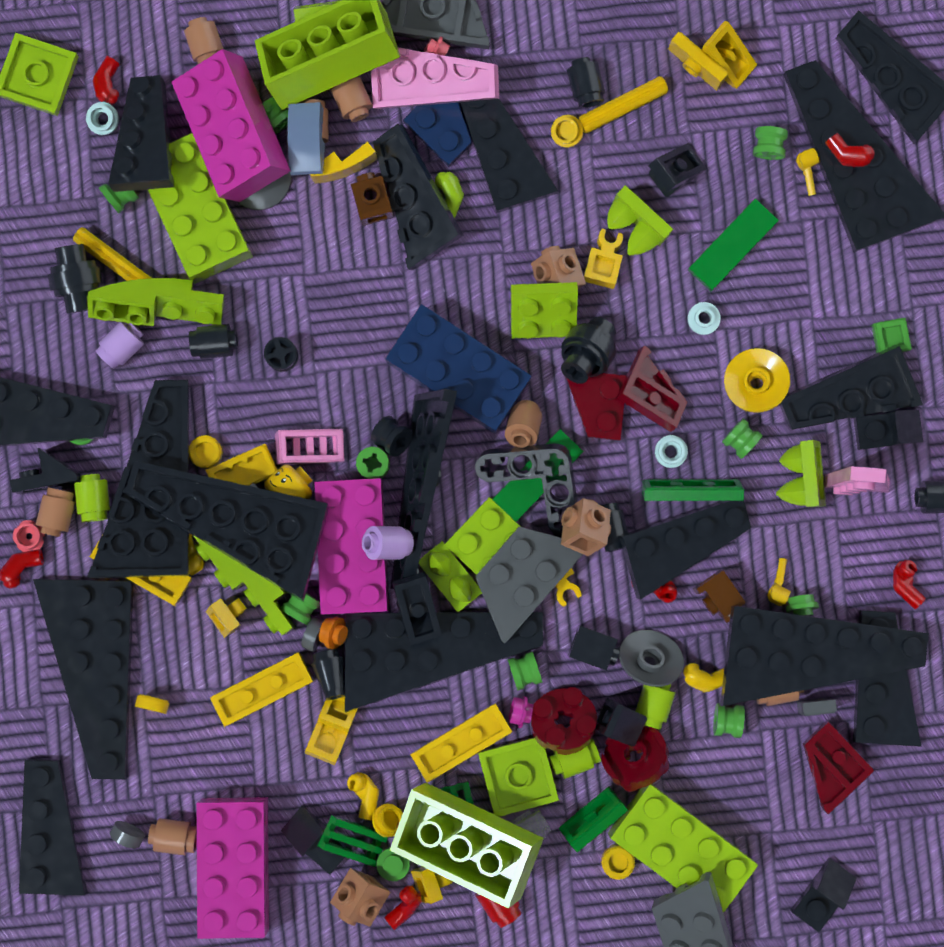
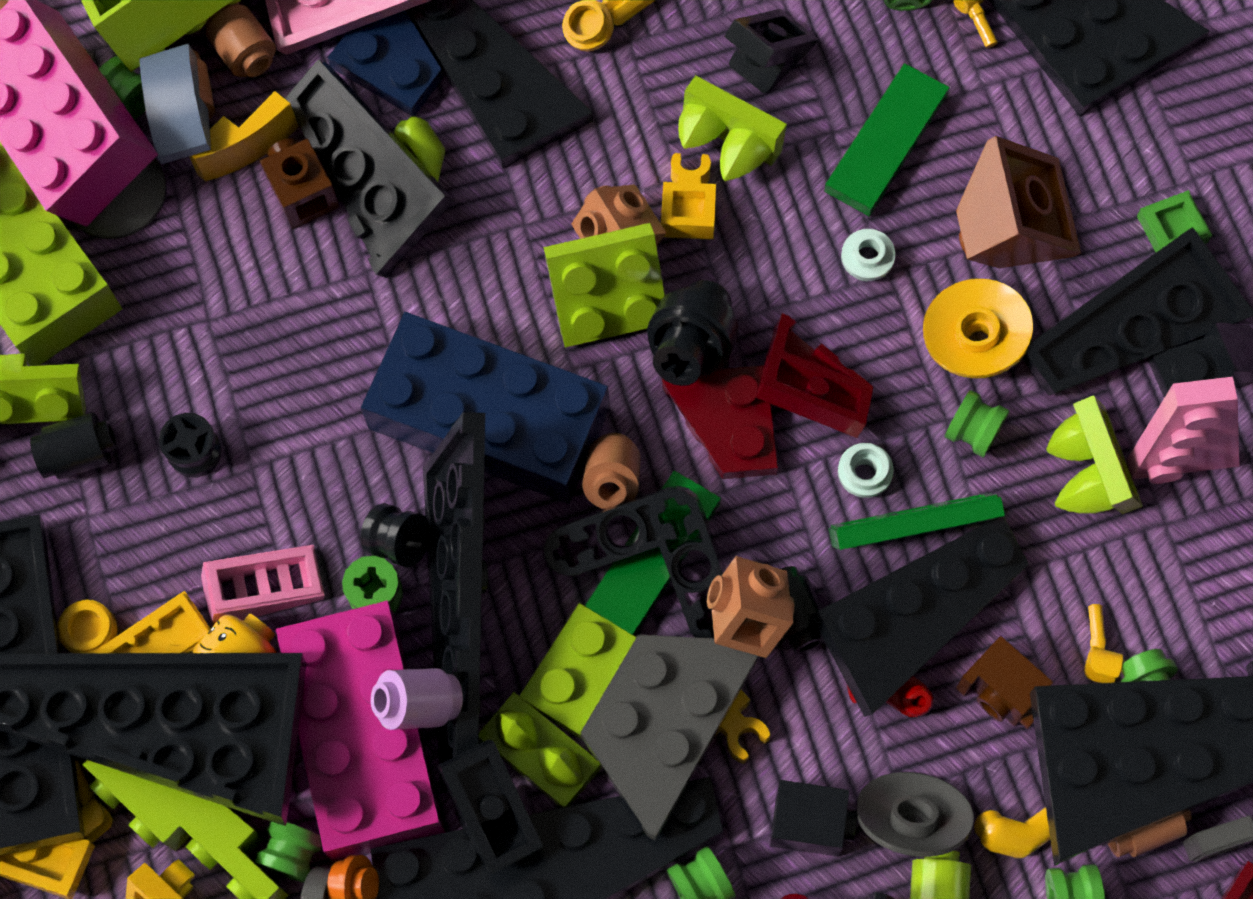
camera: 10 degrees left, 15 degrees down
(799, 309) = (1016, 208): none -> dark orange slope

